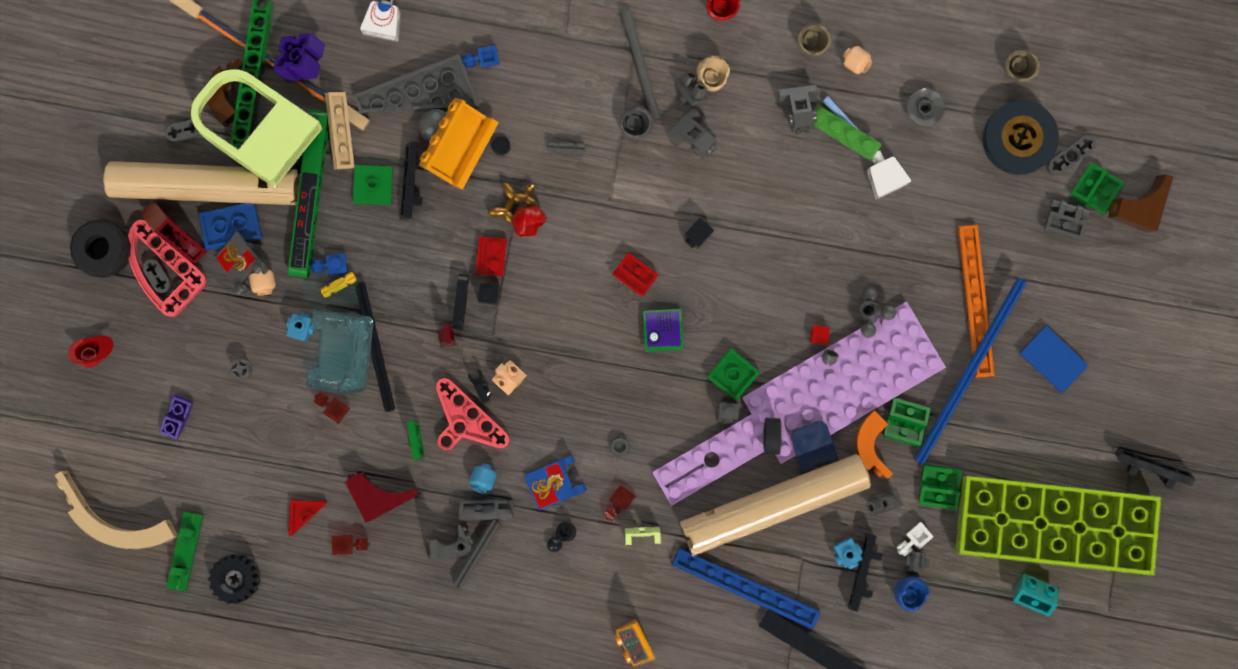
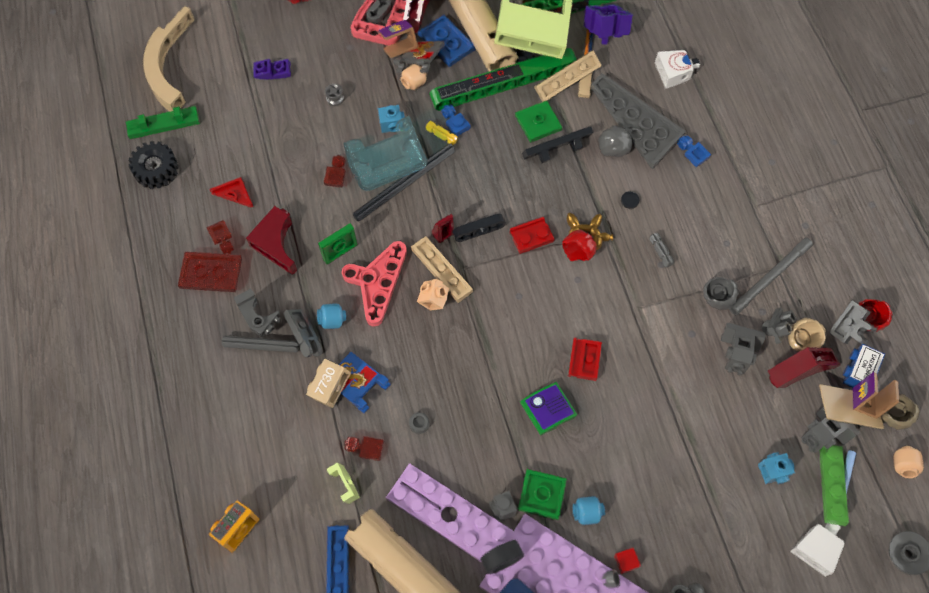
camera: 65 degrees right, 20 degrees down
(209, 275) = (401, 46): none -> medium nougat piece
(380, 569) = (210, 272): none -> clear red plate
(458, 143) = (611, 160): light orange panel -> none
(482, 391) = (409, 280): black plate -> none
(485, 356) = (441, 269): none -> tan plate
(489, 294) = (498, 245): black brick -> none
(547, 509) = (328, 383): none -> tan brick
(555, 543) = (314, 411): black plate -> none
(698, 234) = (655, 395): black brick -> none
(724, 28) = (852, 324): none -> plate
(738, 92) = (802, 365): none -> dark red arch
(763, 43) = (863, 363): none -> brick
(766, 344) = (588, 510): none -> dark azure head
(790, 76) = (839, 407): none -> tan window
(795, 57) = (879, 401): none -> medium nougat piece
(806, 176) = (776, 468): none -> dark azure brick

